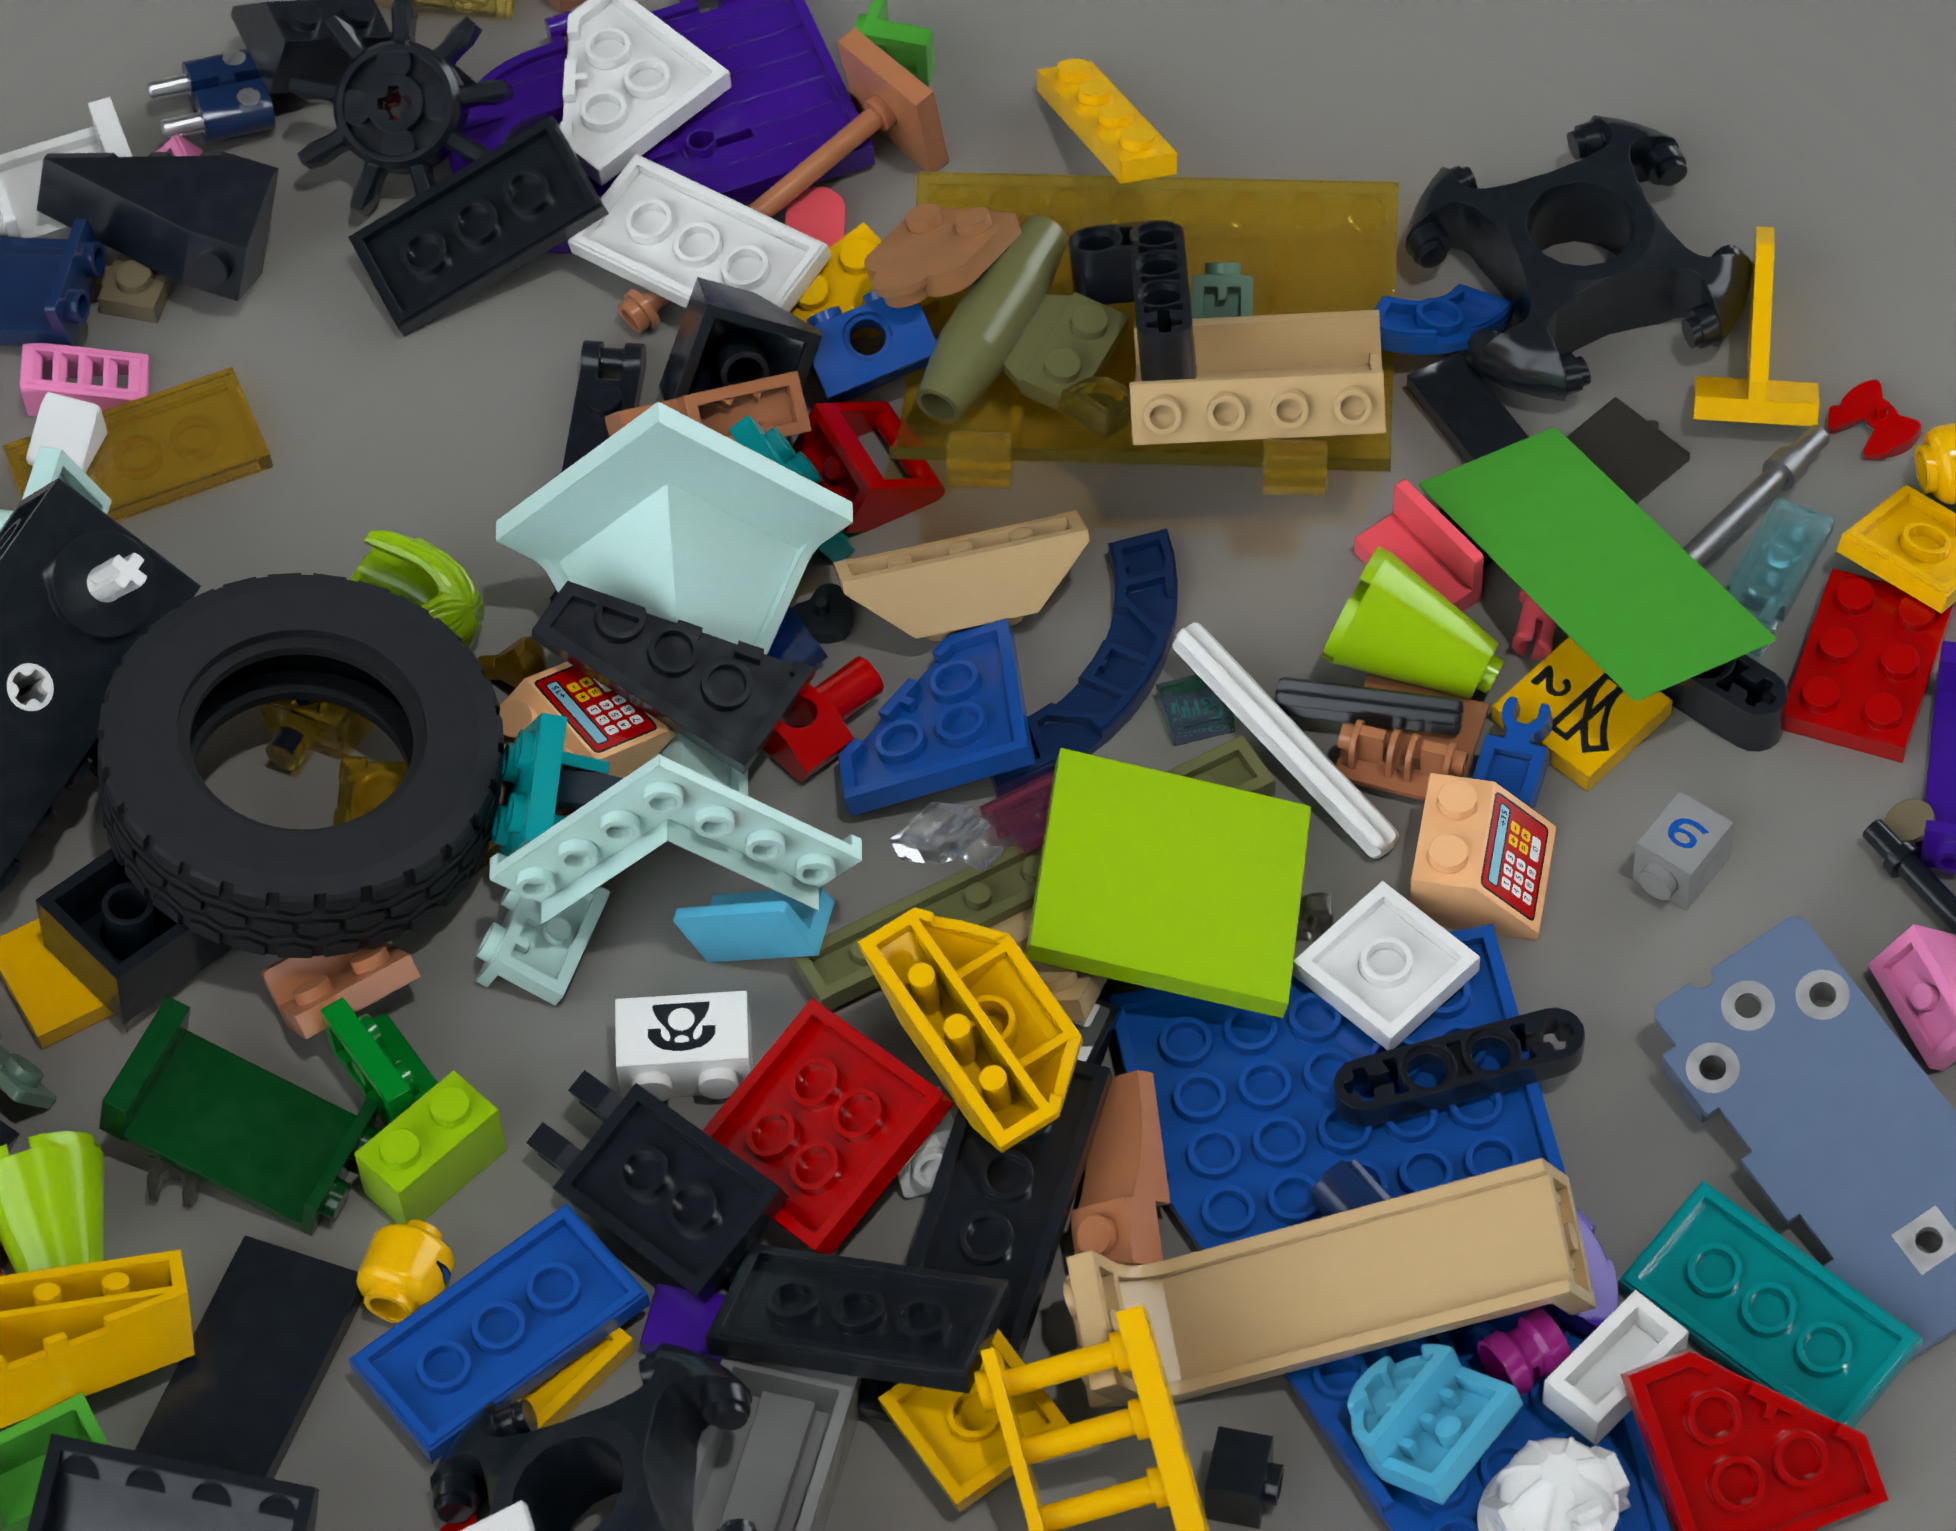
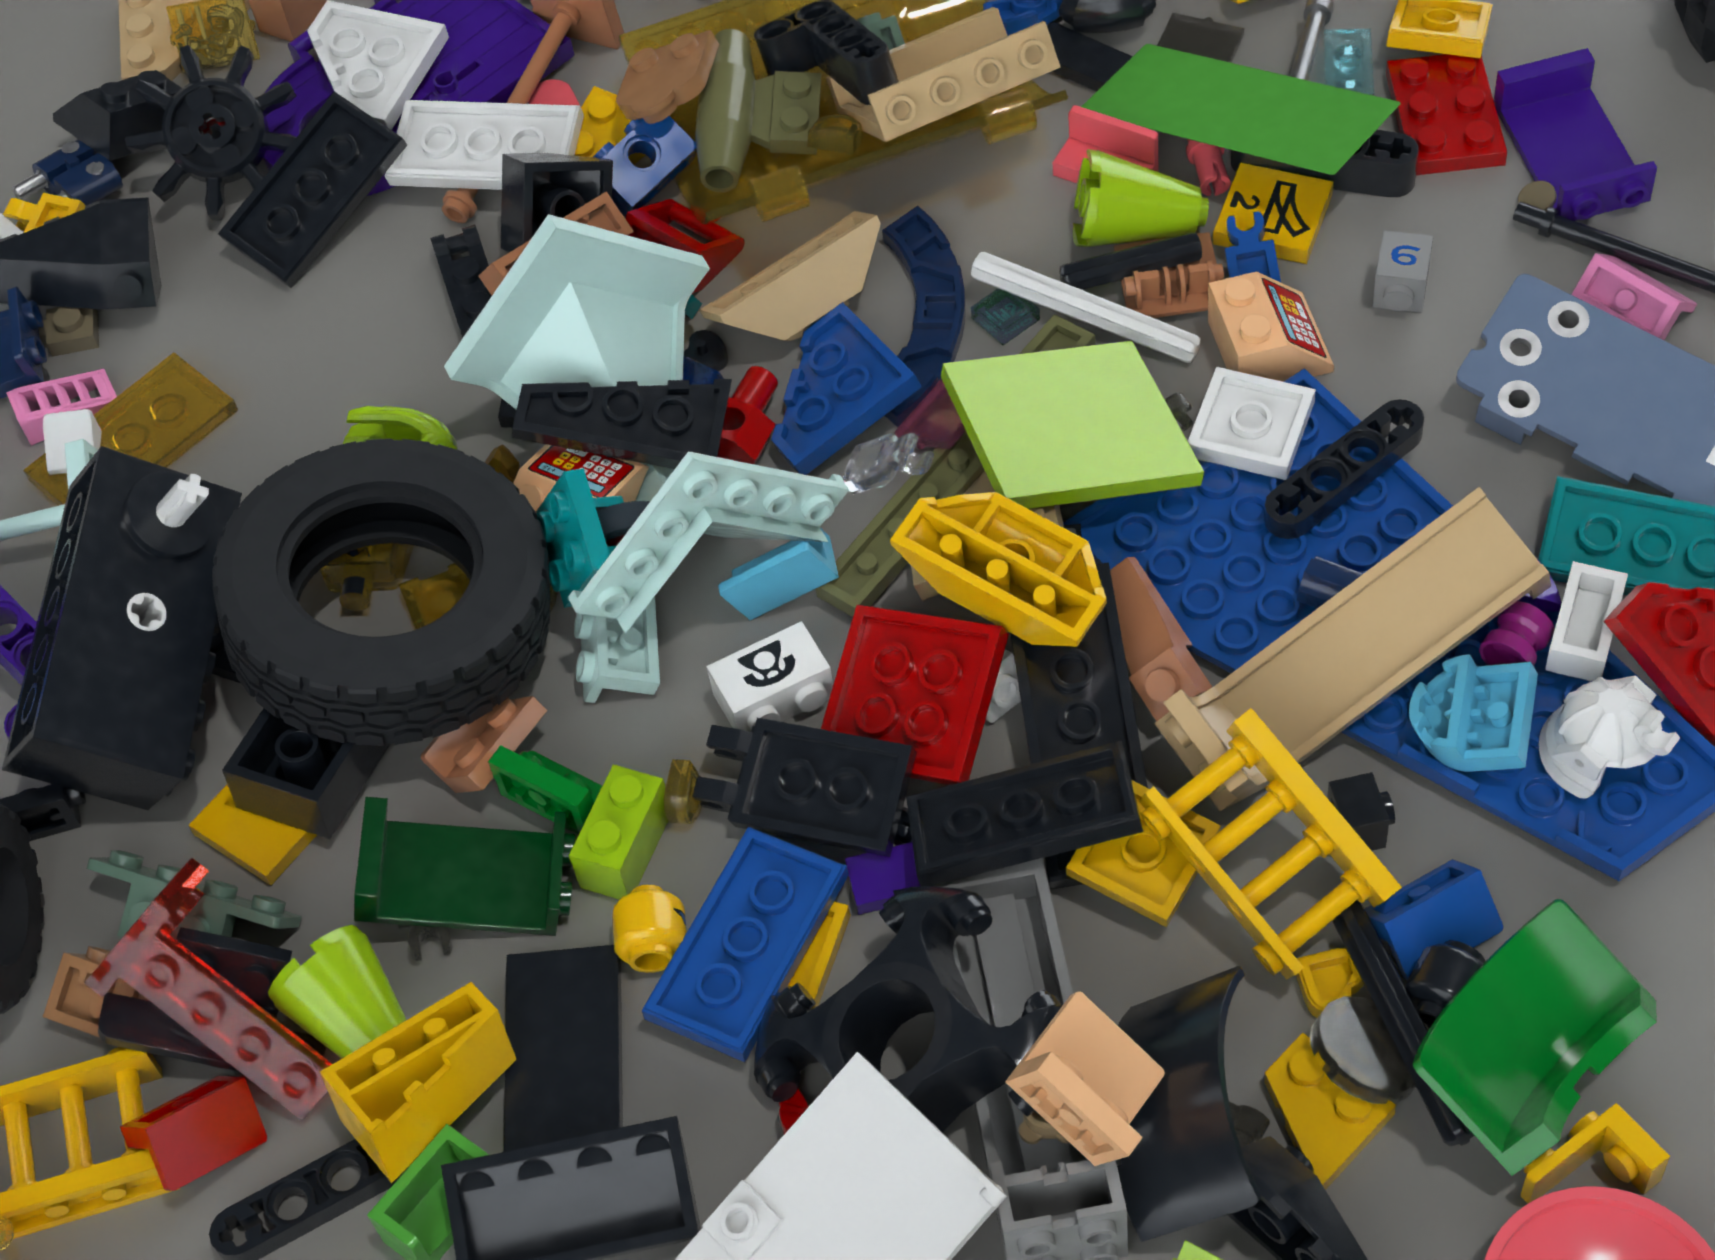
camera: 20 degrees left, 0 degrees up
(167, 135) = (34, 215): none -> yellow plate
(514, 1129) = (678, 799): none -> clear yellow tile

